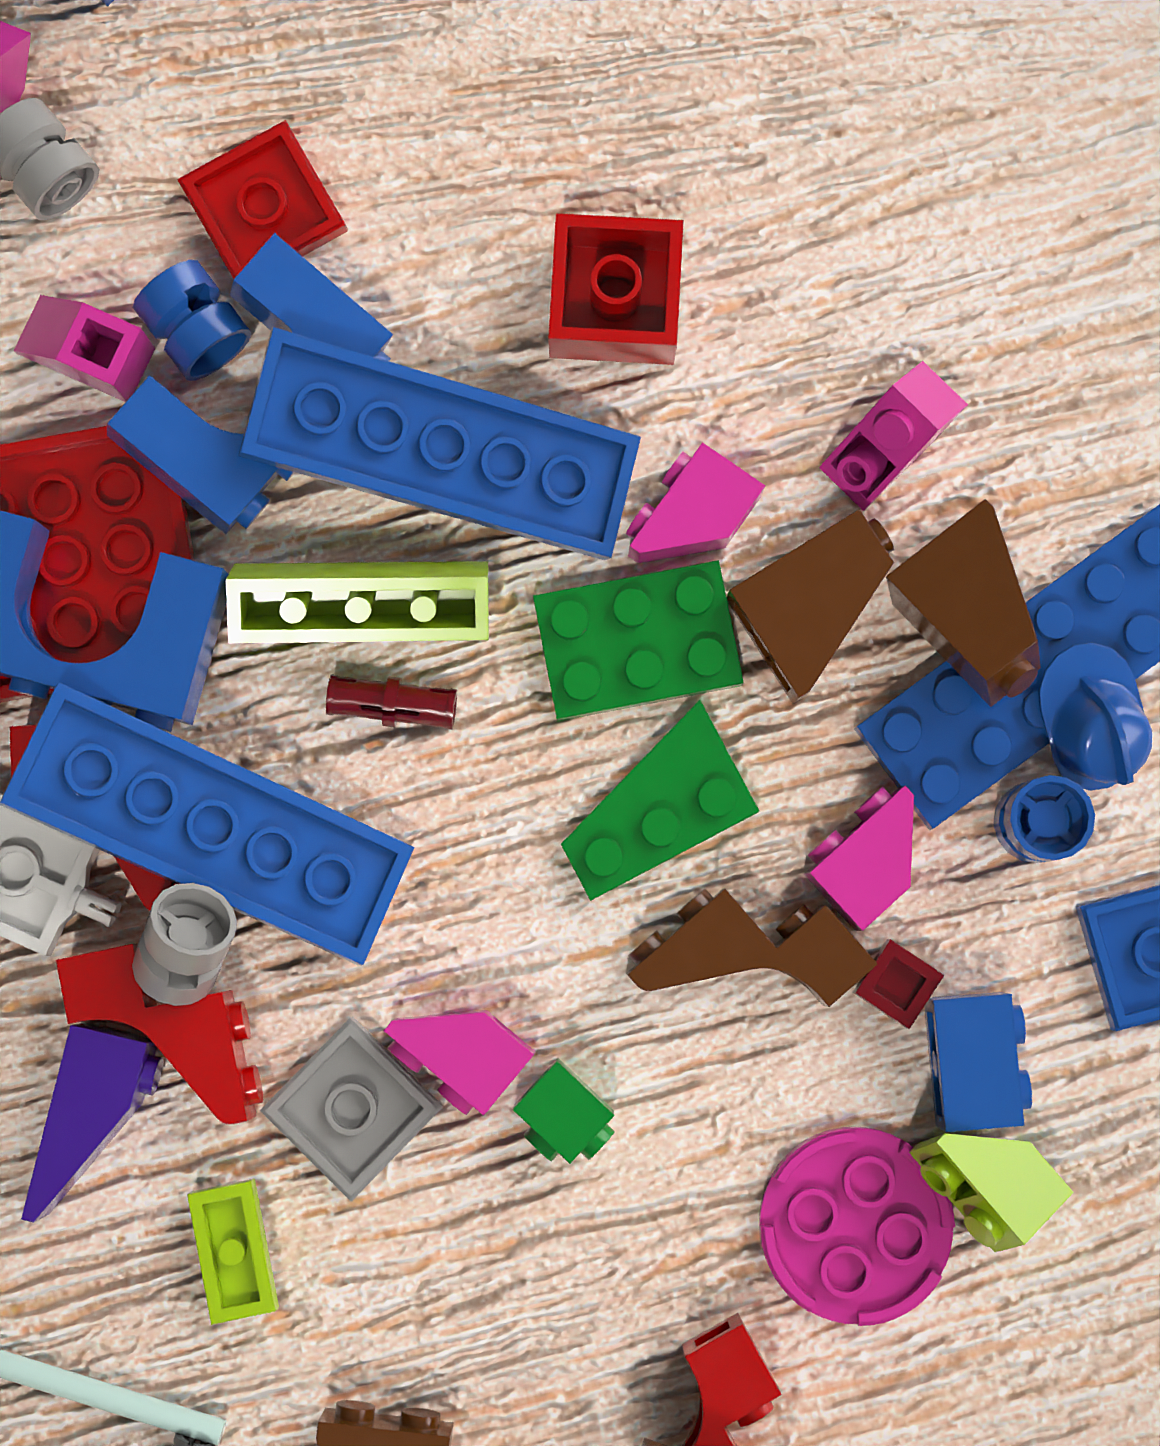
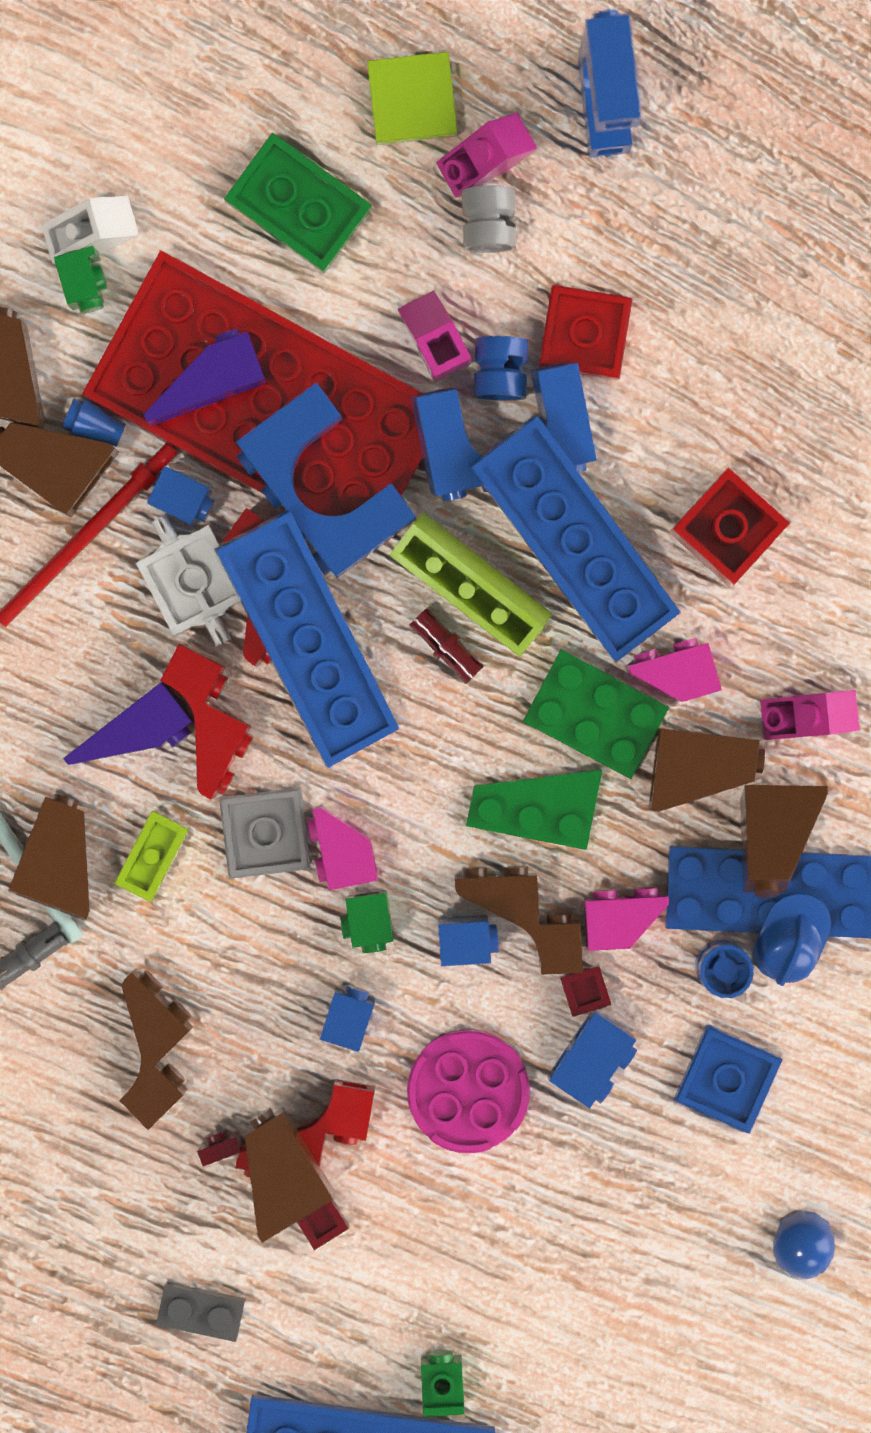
camera: 35 degrees right, 5 degrees up
(111, 1355) = (55, 860): none -> reddish brown slope
(184, 944) = (249, 689): light grey wheel -> none
(635, 1256) = (348, 1018): none -> blue brick
(704, 1039) = (467, 940): none -> blue brick
(995, 1184) = (552, 1125): lime slope -> none

